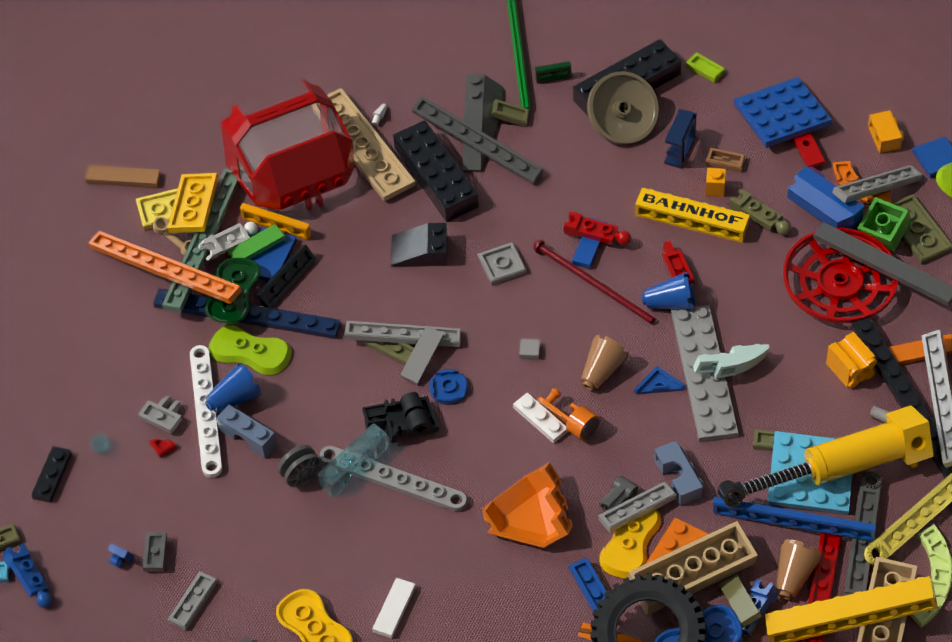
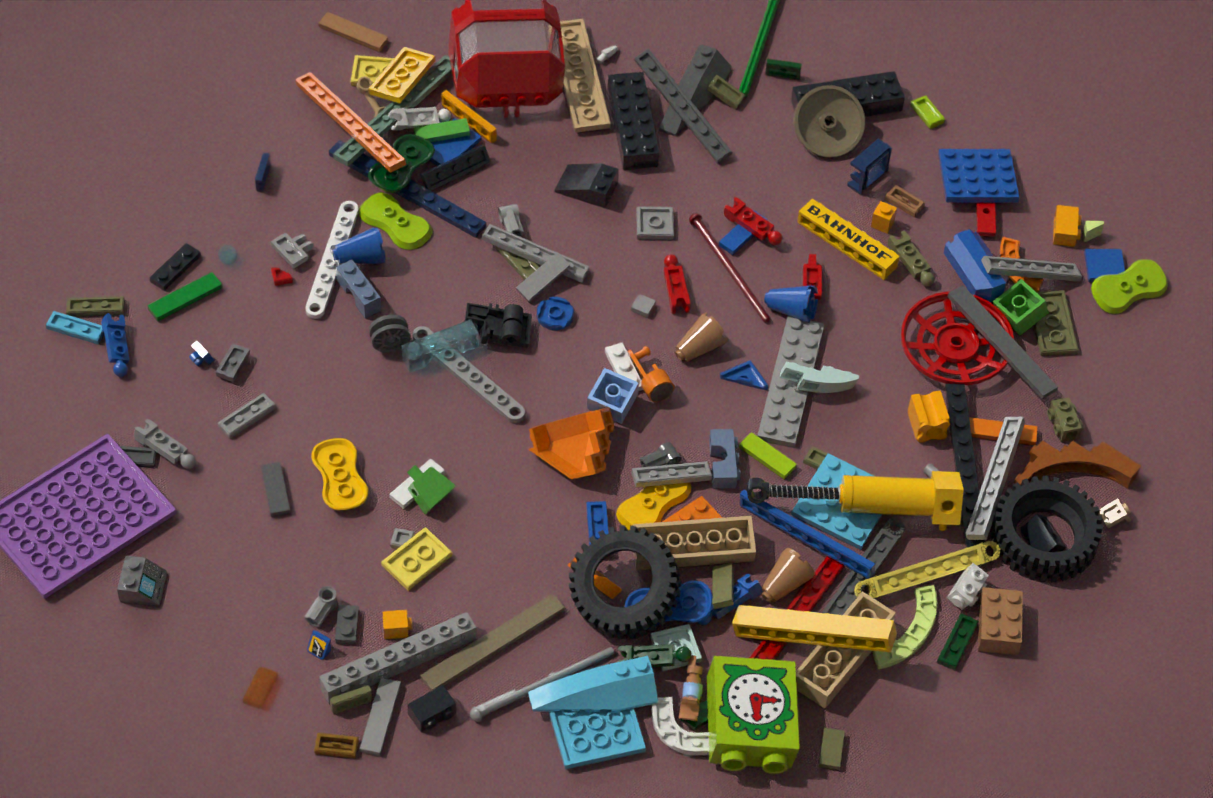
camera: 15 degrees right, 0 degrees up
(75, 501) = (184, 296): none -> green tile
(97, 347) = (262, 172): none -> dark blue tile
(361, 306) = (511, 218): none -> light grey piece
(409, 608) = (428, 487): none -> bright green torso
(543, 446) = (614, 392): none -> light blue brick
(551, 317) = (675, 284): none -> red plate
(717, 454) = (767, 455): none -> lime tile
(910, 127) = (1092, 229): none -> yellowish green slope

